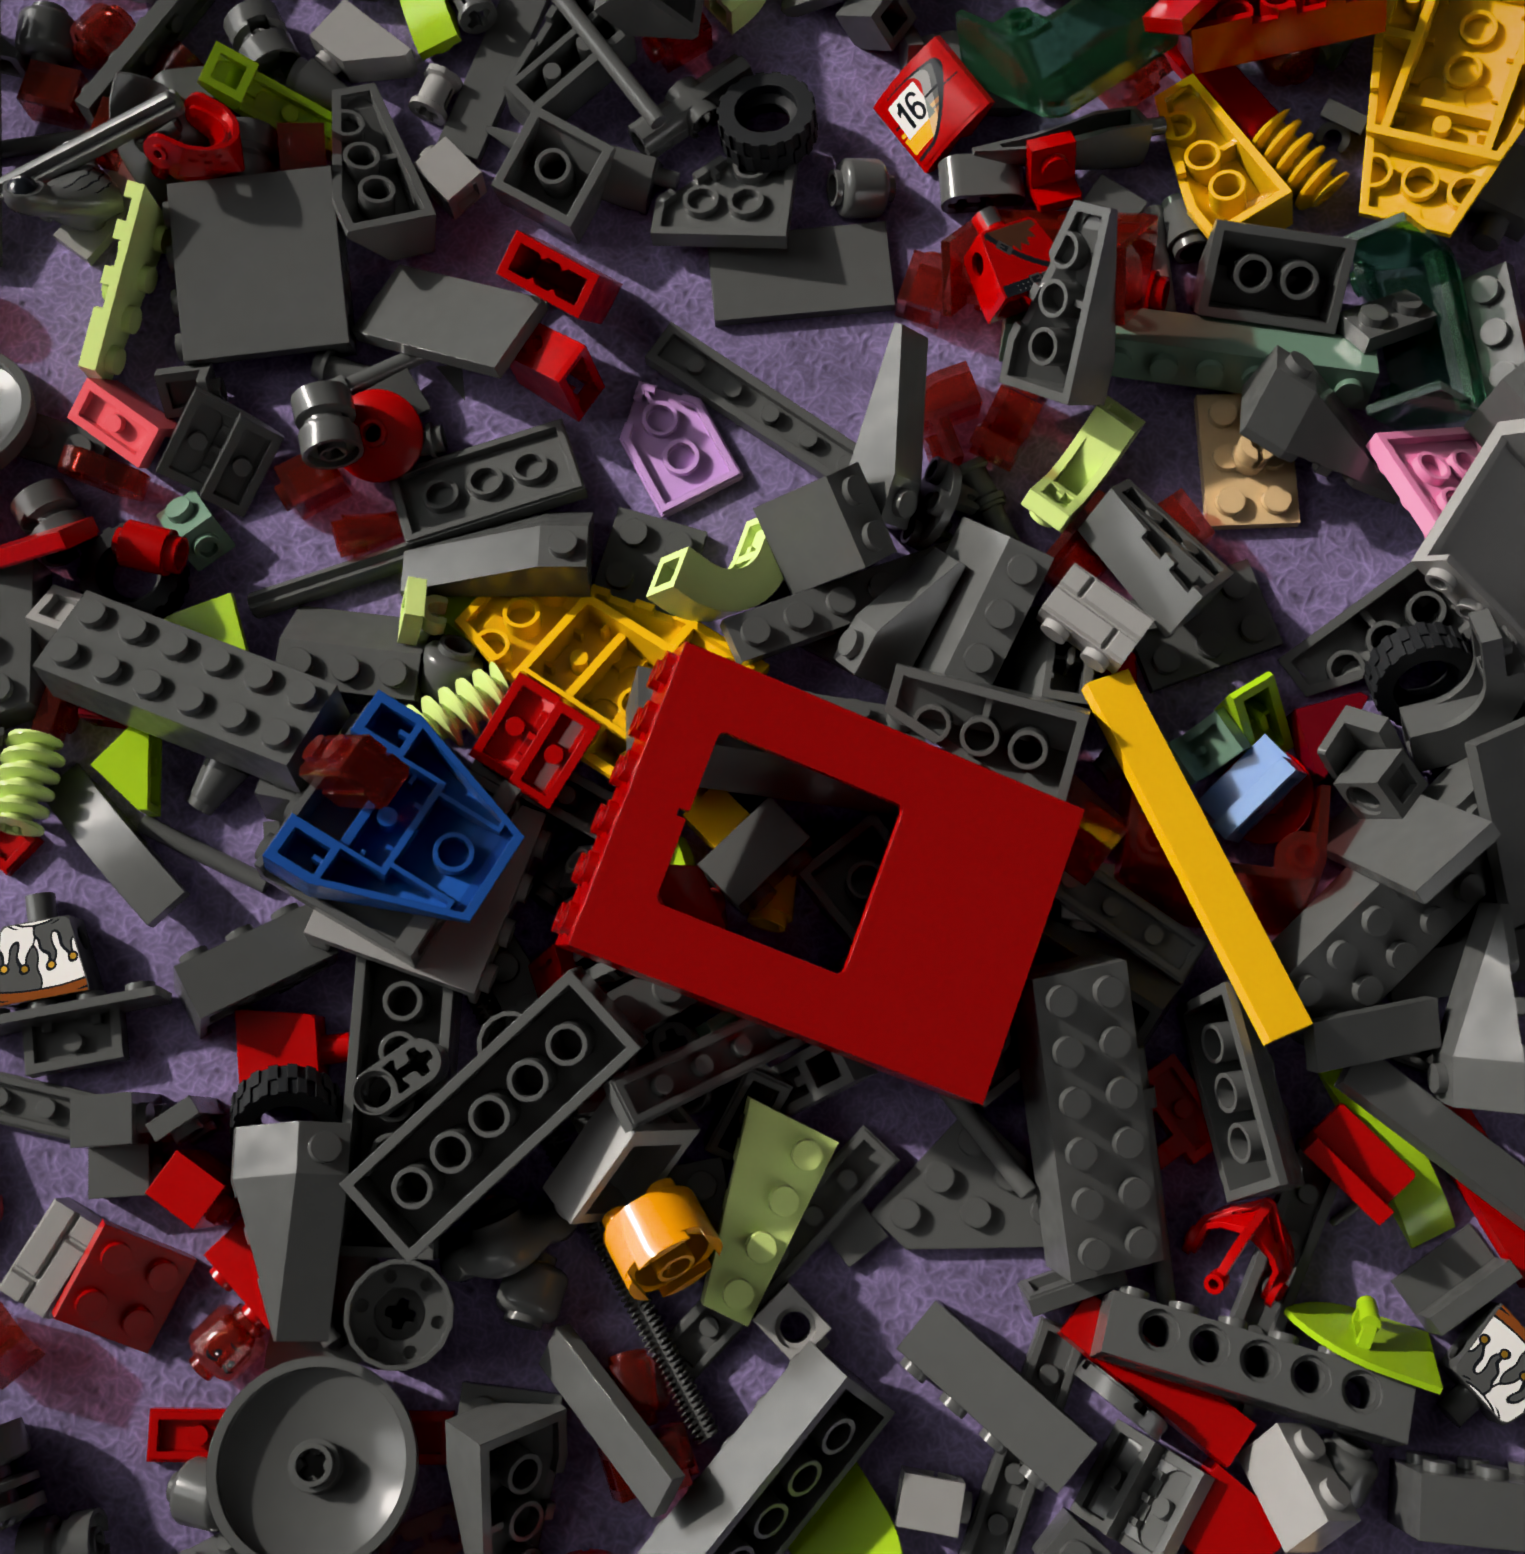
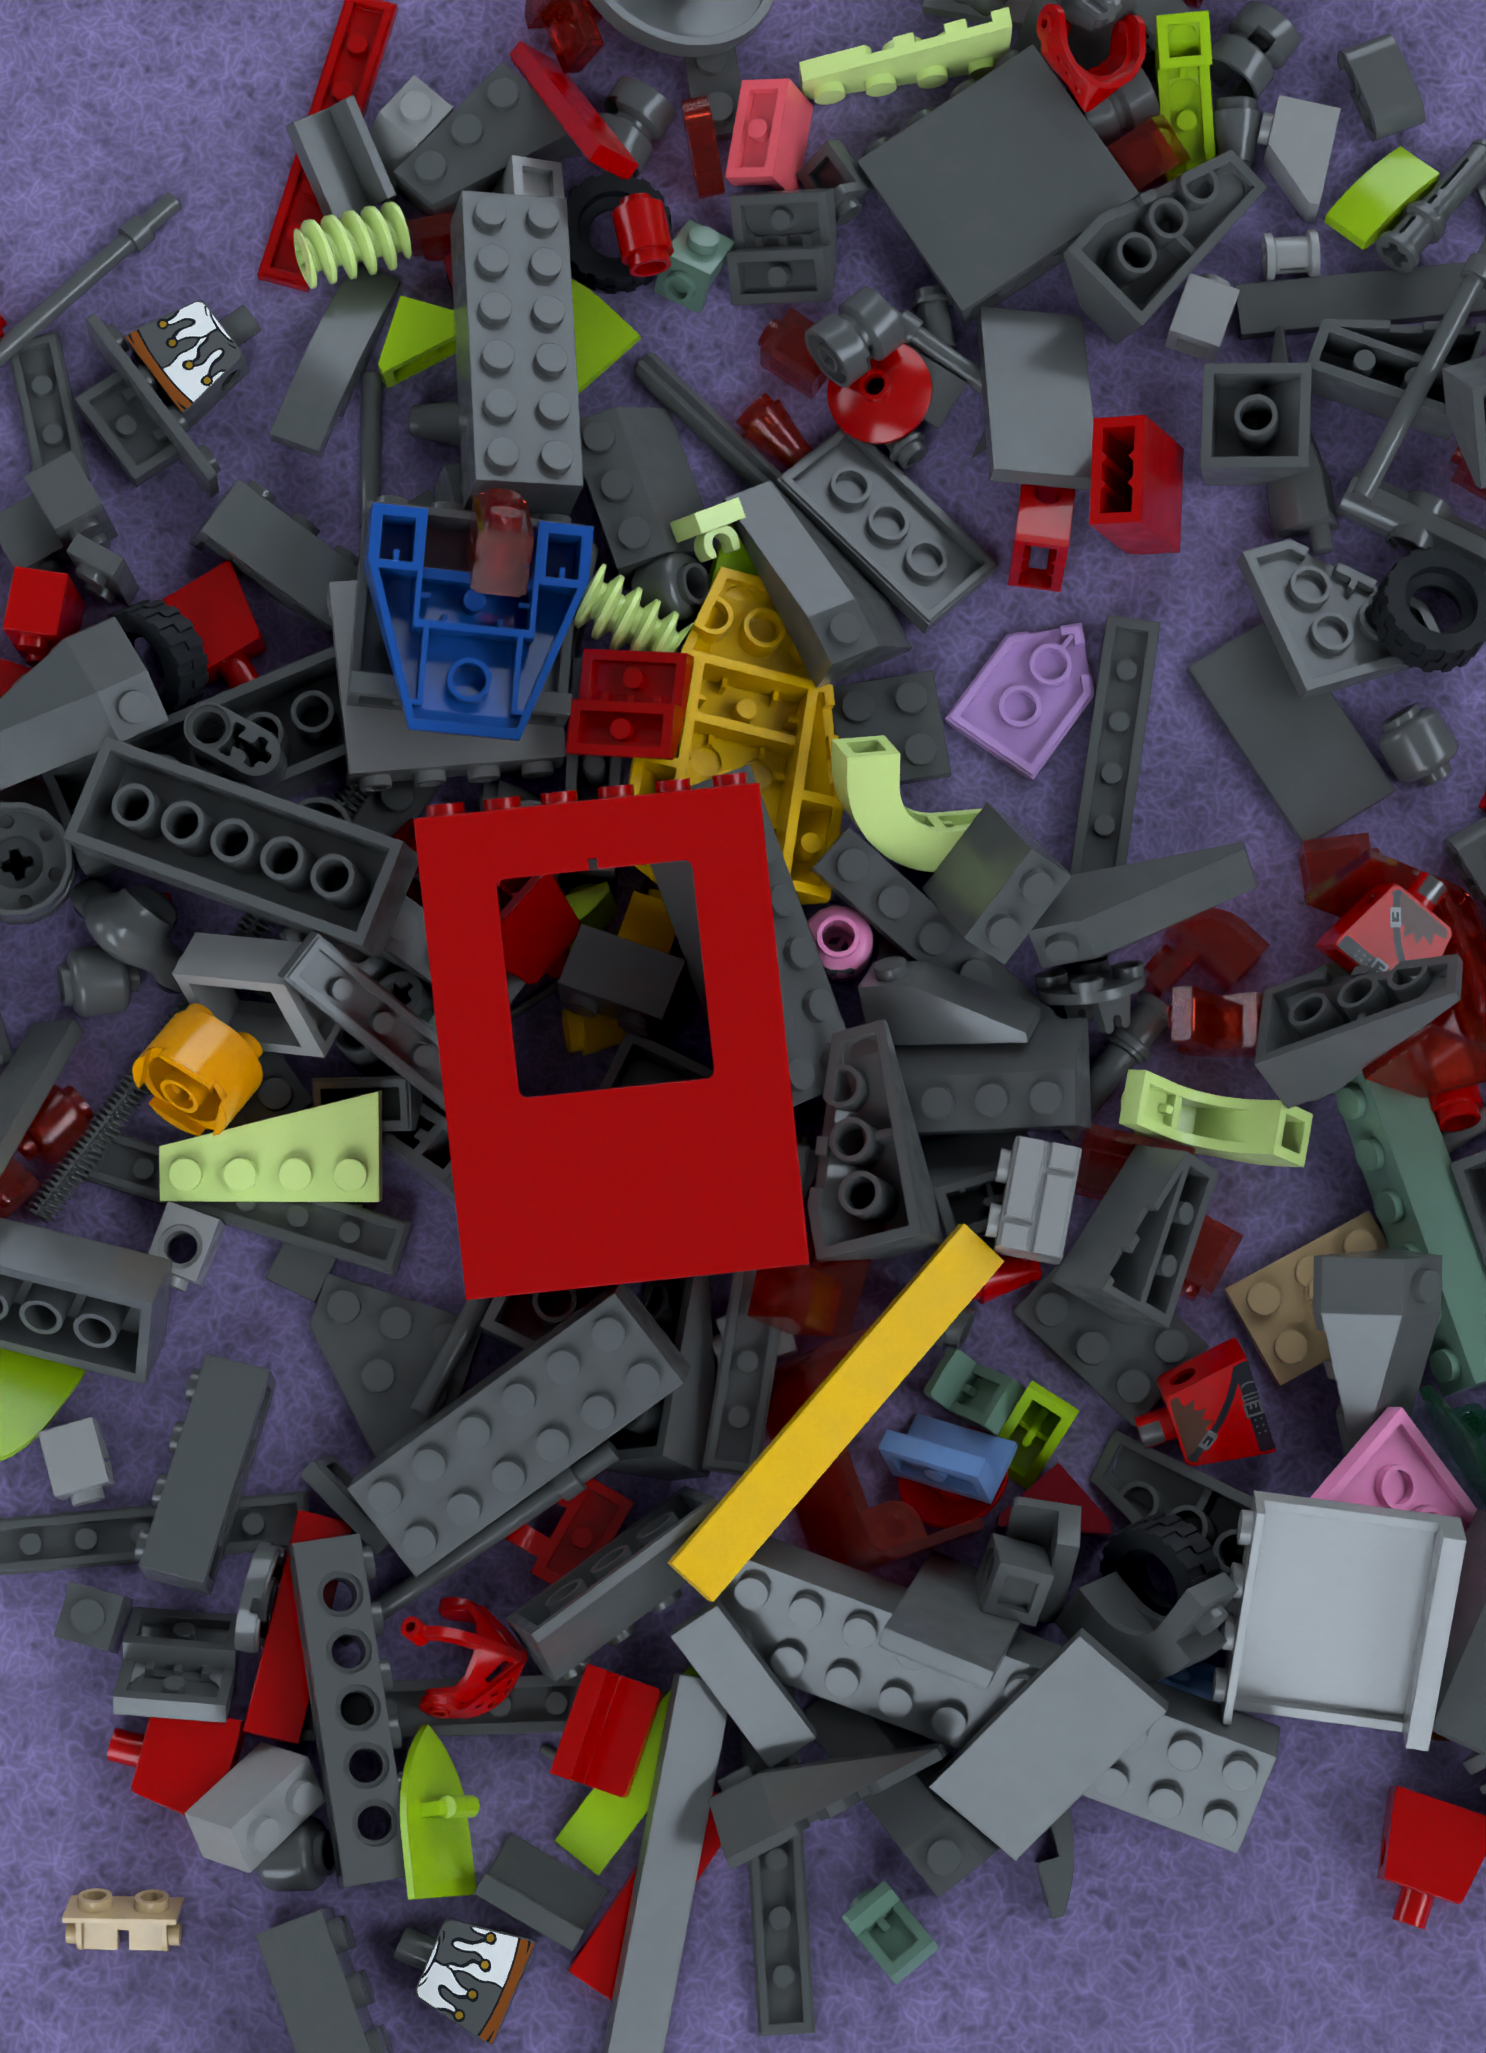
camera: 65 degrees right, 0 degrees up
(808, 664) = (850, 929): none -> bright pink head
(1301, 577) = (1209, 1409): none -> red torso

